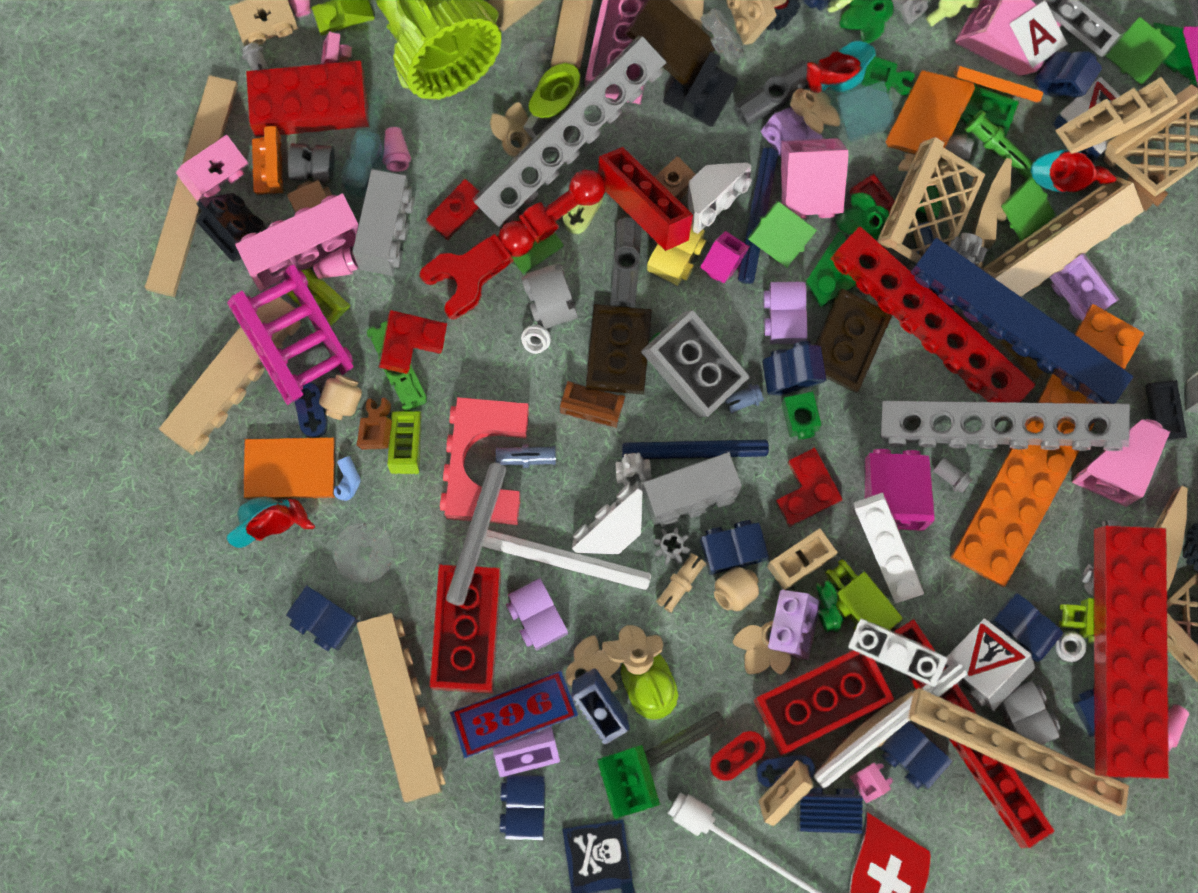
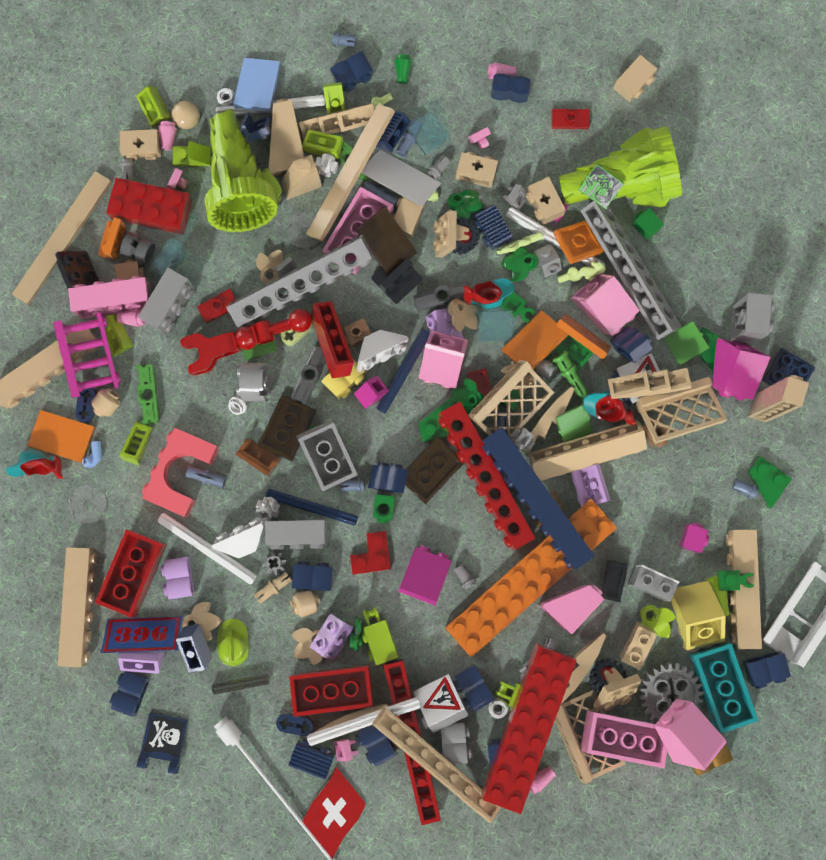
camera: 25 degrees right, 5 degrees up
(220, 154) = (81, 224): bright pink brick -> none
(322, 619) = (48, 536): dark blue brick -> none
(376, 429) = (120, 429): dark orange plate -> none
(395, 152) = (192, 258): bright pink cone -> none
(408, 332) = (156, 376): red plate -> none
(476, 534) = (154, 518): light grey axle -> none
(555, 90) = (301, 252): lime piece -> none
(628, 782) = (196, 699): green bracket -> none
(634, 649) = (228, 616): tan plate -> none
(724, 39) = (421, 250): clear plate -> none
(737, 756) = (269, 705): red plate -> none
(782, 234) = (412, 389): bright green piece -> none
(785, 793) = (287, 739): tan plate -> none
(786, 312) = (398, 439): lavender brick -> none
(802, 559) = (350, 599): tan brick -> none
(888, 548) = (403, 611): white plate -> none
(898, 652) = (382, 680): white slope -> none
(1038, 34) = (621, 312): white sticker -> none
(1114, 416) = (571, 581): light grey brick -> none

